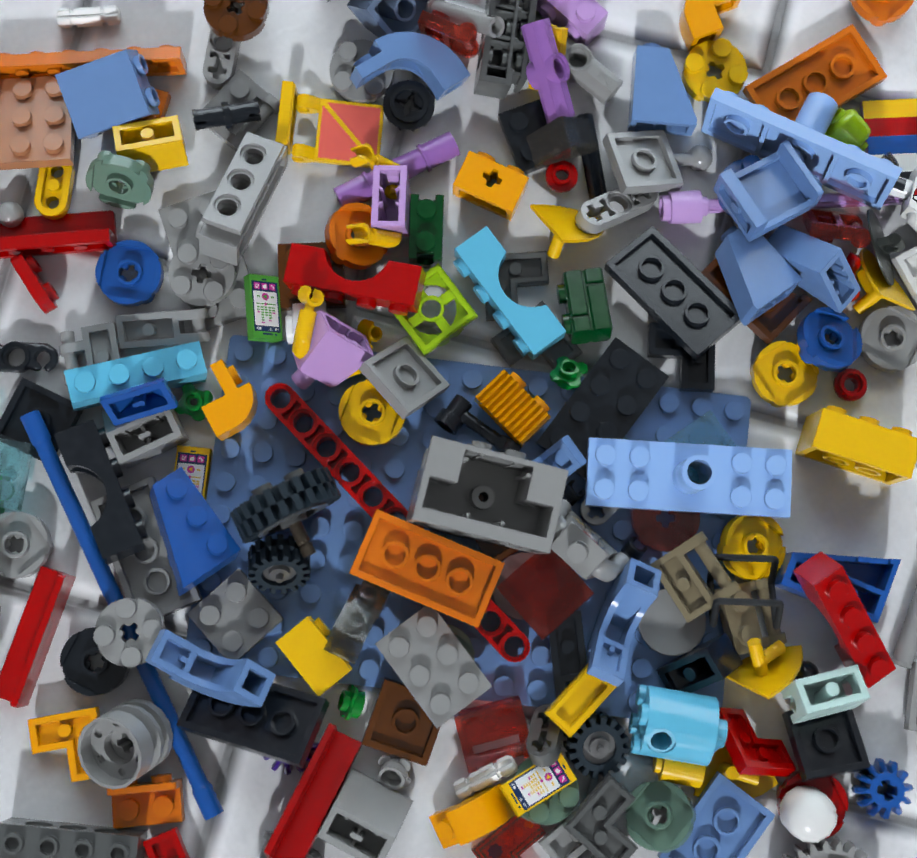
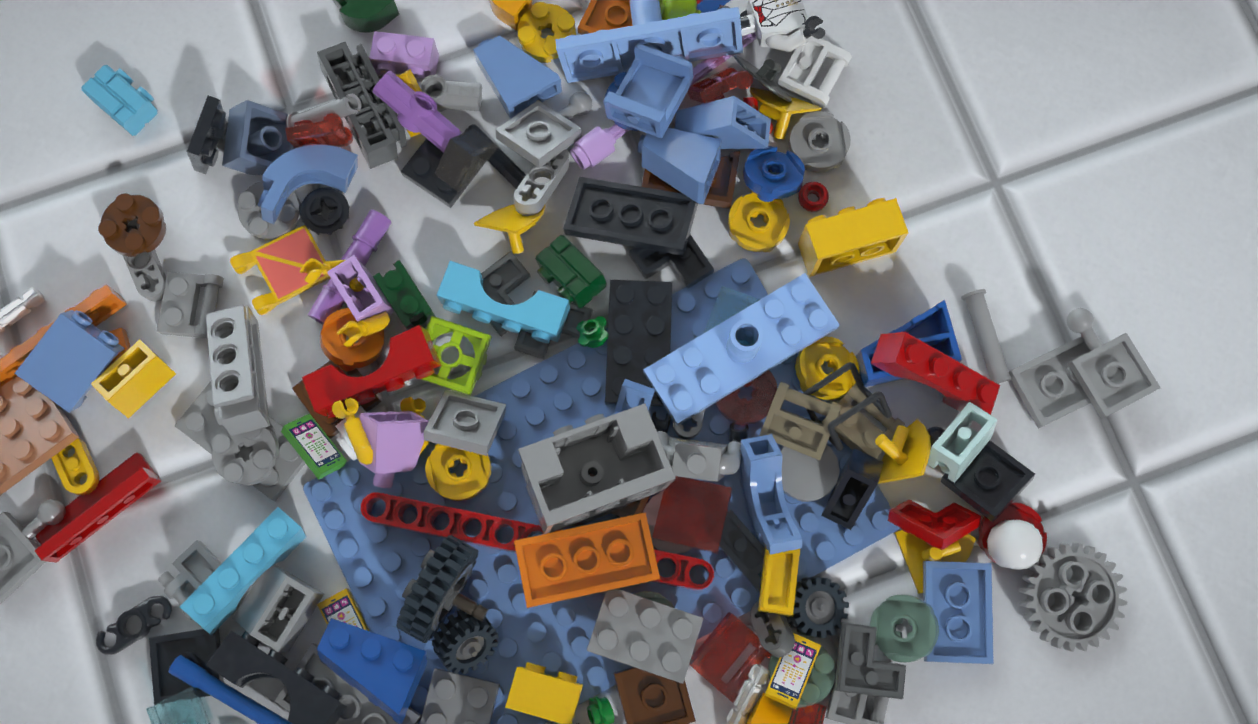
camera: 30 degrees left, 5 degrees down
(29, 271) = (97, 547): red plate -> none
(109, 169) = (110, 418): sand green plate -> none
(121, 257) = (168, 484): blue plate -> none
(138, 401) = (260, 589): blue slope -> none
(161, 328) = (239, 518): light grey plate -> none
(189, 394) = (315, 565): green plate -> none
(226, 115) = (180, 313): black pin -> none
(236, 408) = (344, 540): light orange brick -> none
(287, 115) = (231, 281): yellow tile -> none
(356, 621) = (559, 642): clear smoke window -> none
(458, 414) = (527, 423): black brick -> none
(501, 197) = (447, 231): light orange brick -> none
(513, 407) = (568, 387): light orange brick -> none
(558, 185) = (483, 194): red plate -> none
(676, 725) = (867, 546): medium azure cylinder -> none
(679, 772) = (892, 578): yellow brick -> none
(891, 798) = (1067, 486): blue gear -> none

